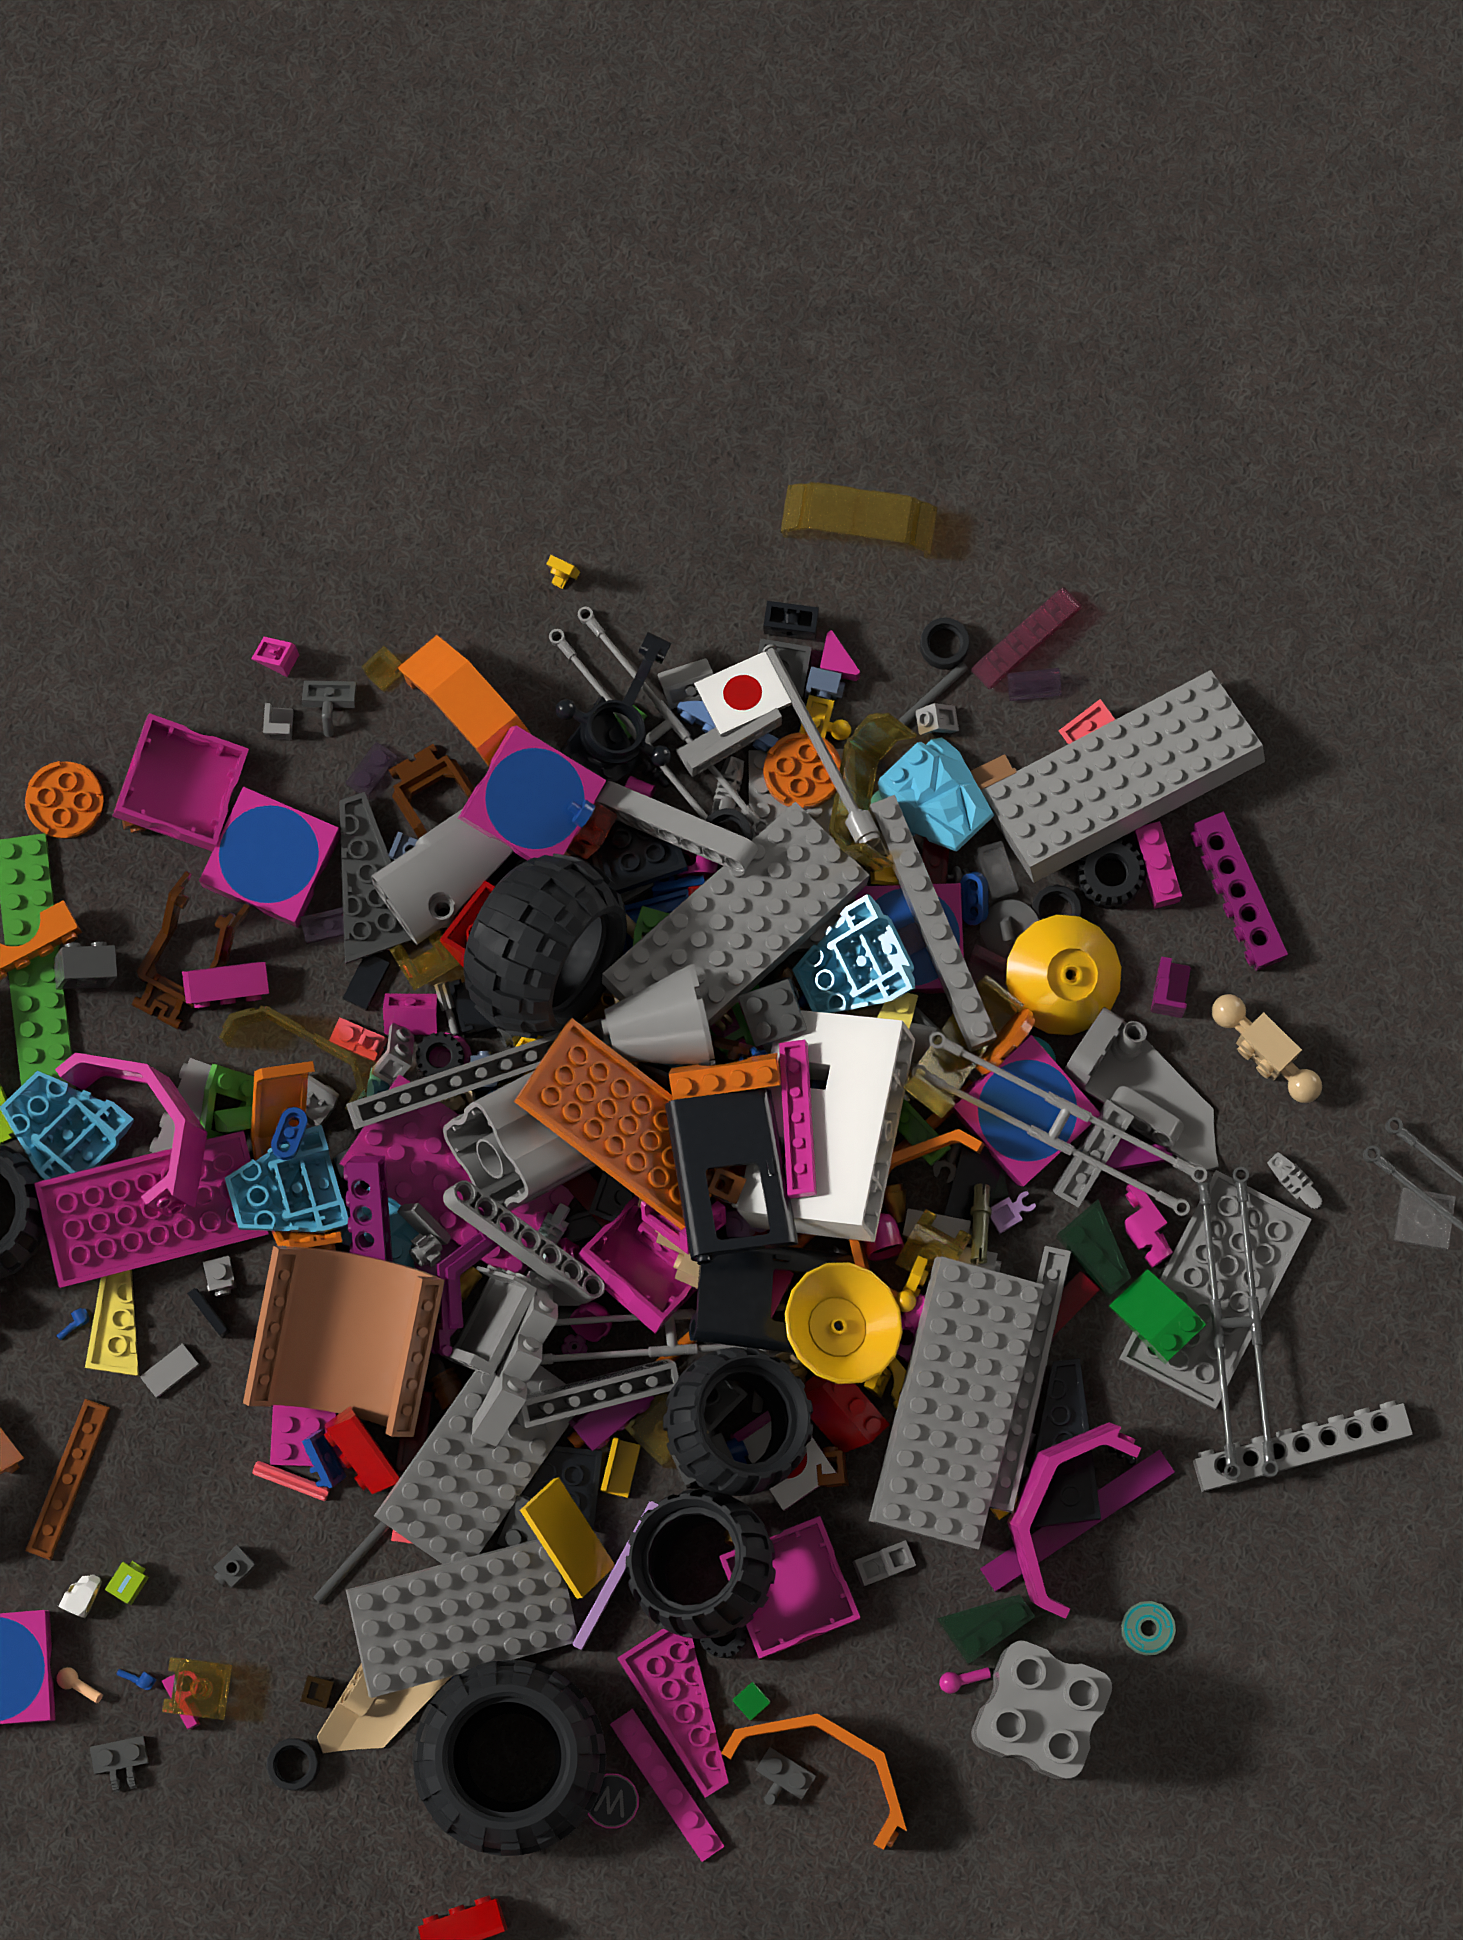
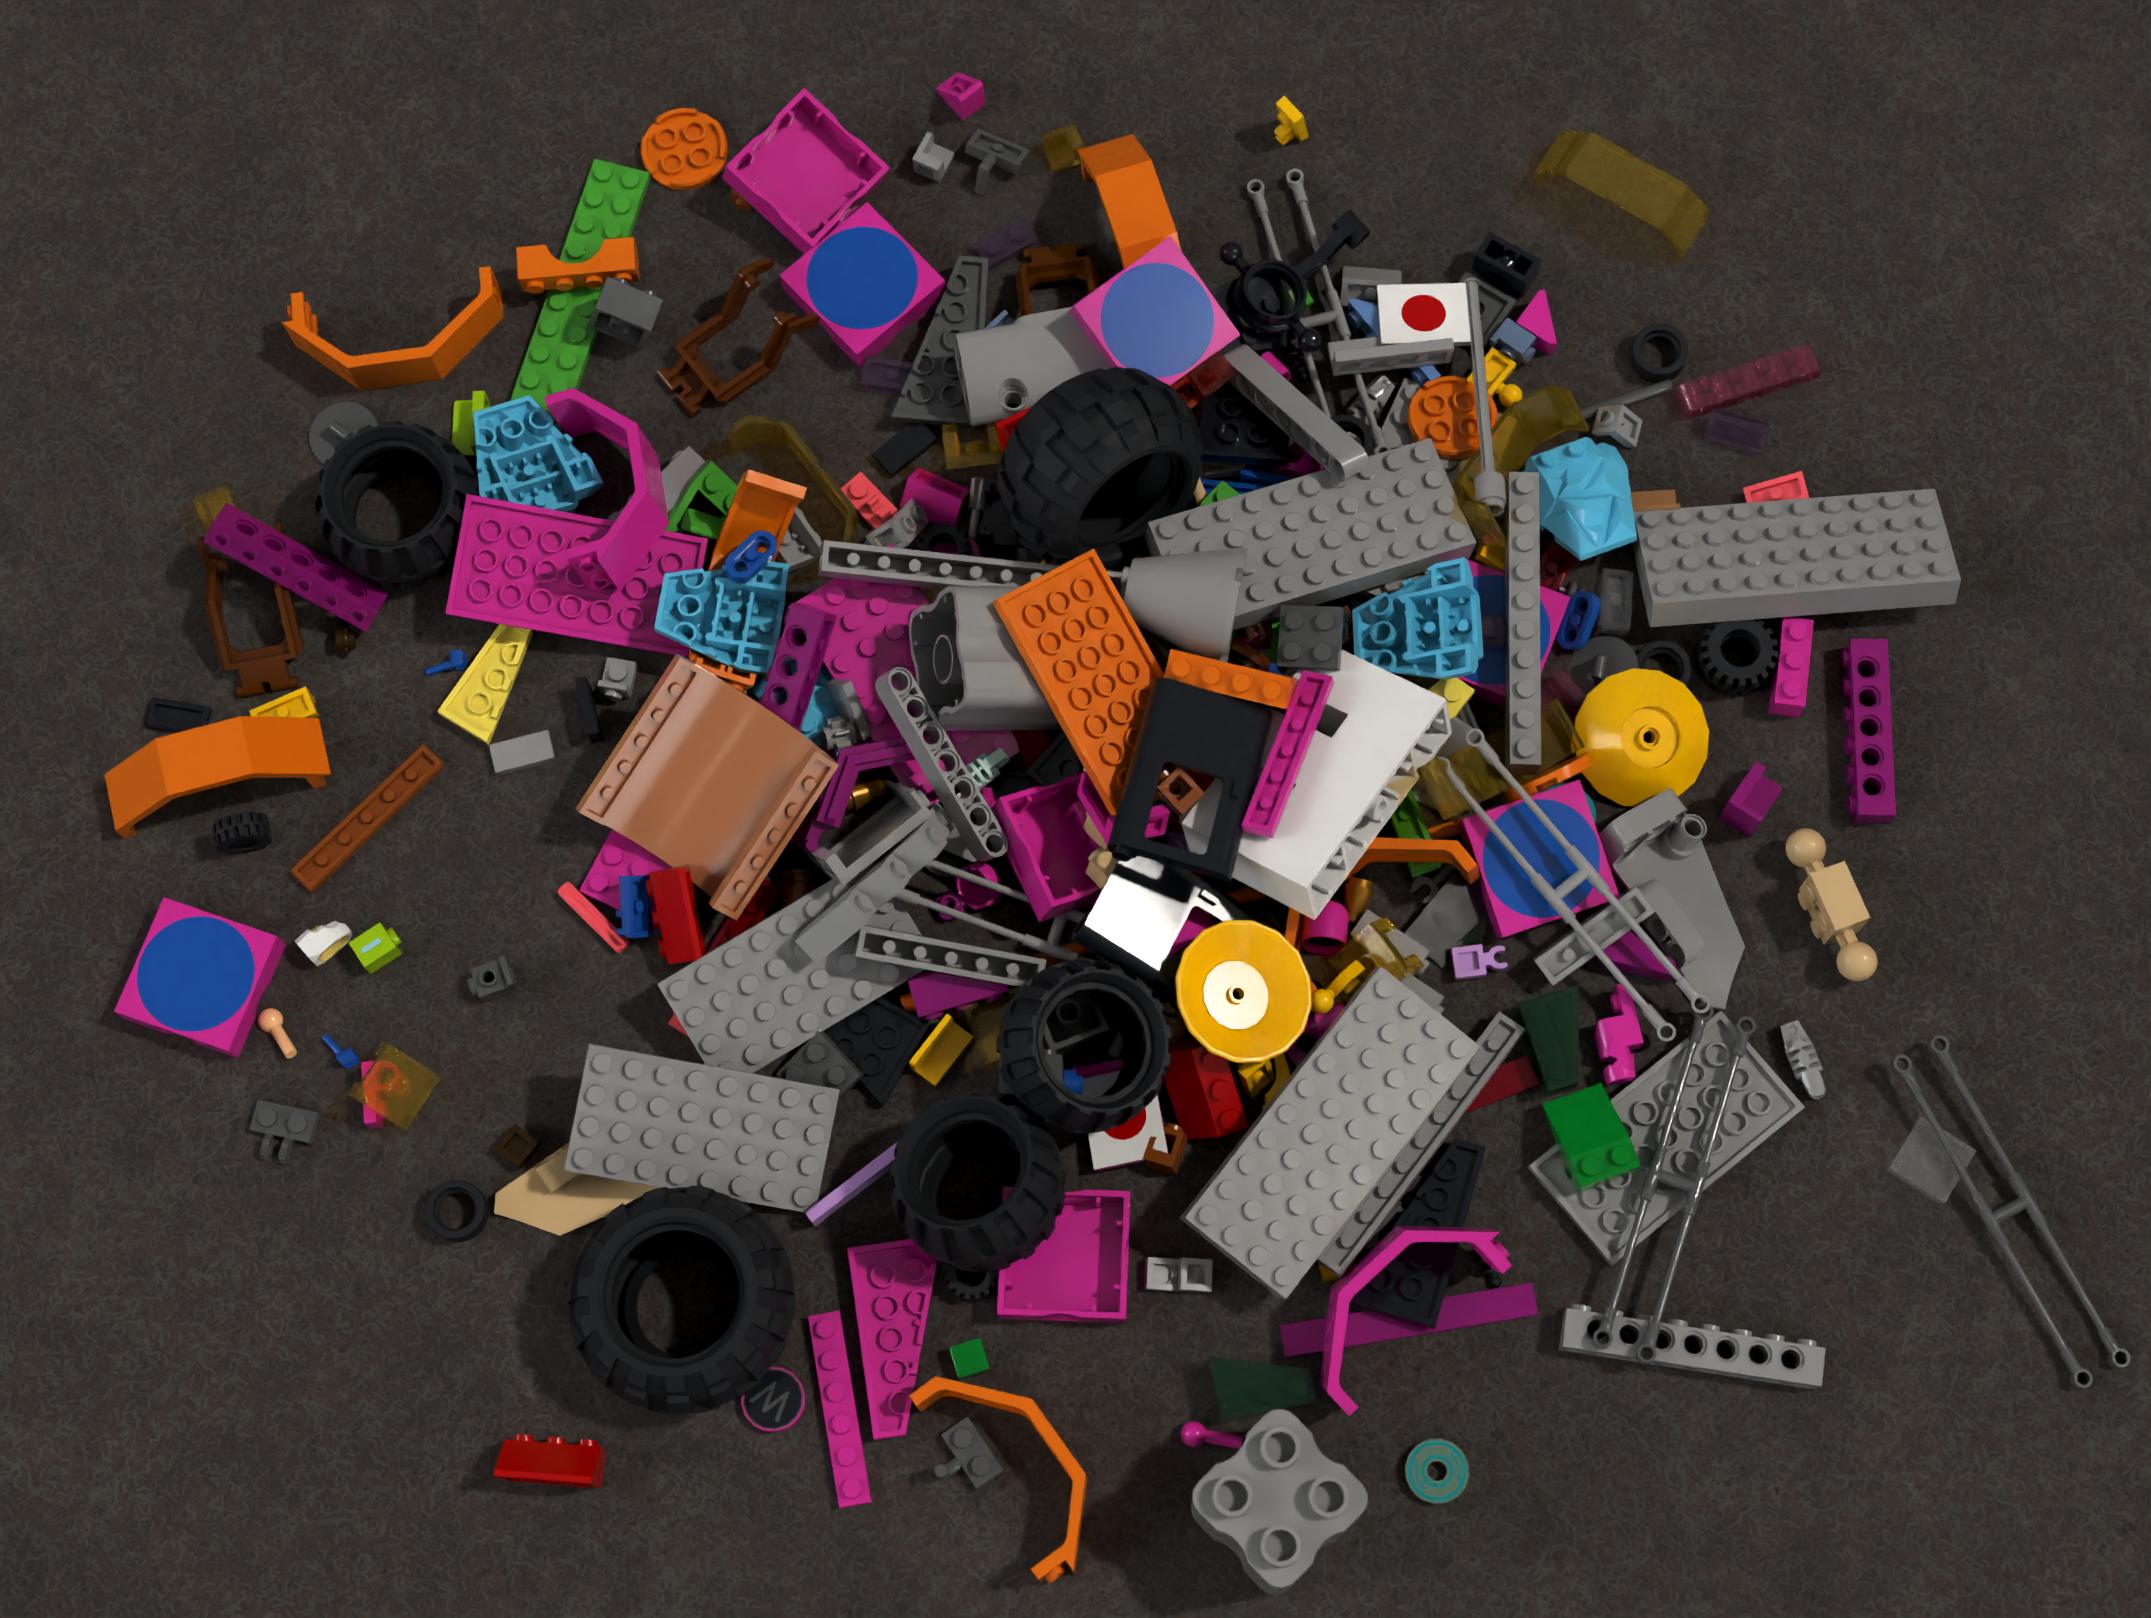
camera: 25 degrees right, 5 degrees down
(225, 984) = (759, 387): dark pink brick -> none
(351, 1562) = (615, 1028): dark grey bar -> none
(567, 1538) = (850, 1096): yellow tile -> none
(582, 812) = (1198, 352): blue tile -> none
(981, 1214) = (1444, 947): olive pin -> none

